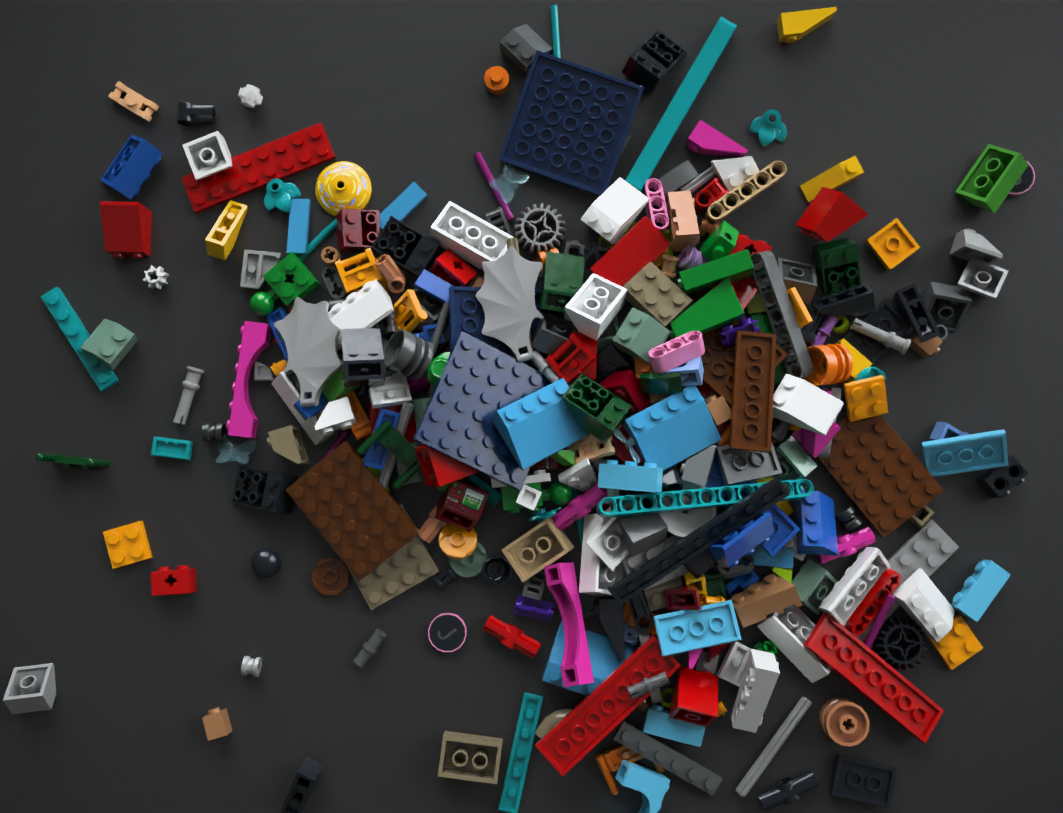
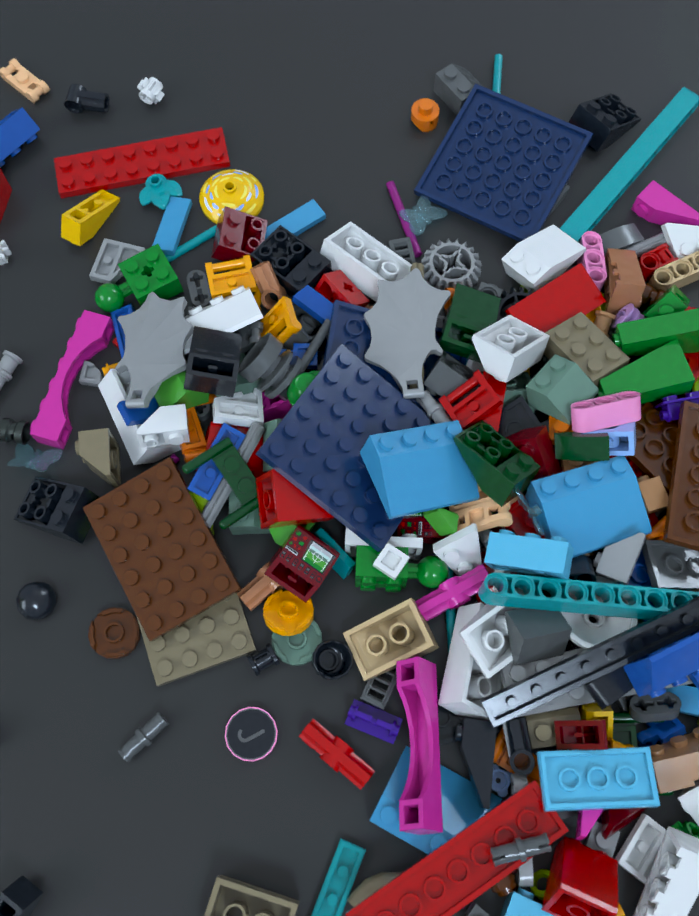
camera: 10 degrees right, 15 degrees down
(208, 155) = (88, 134): white slope -> none
(325, 255) = (199, 261): medium nougat bush -> none
(542, 514) = (401, 595): teal plate -> none

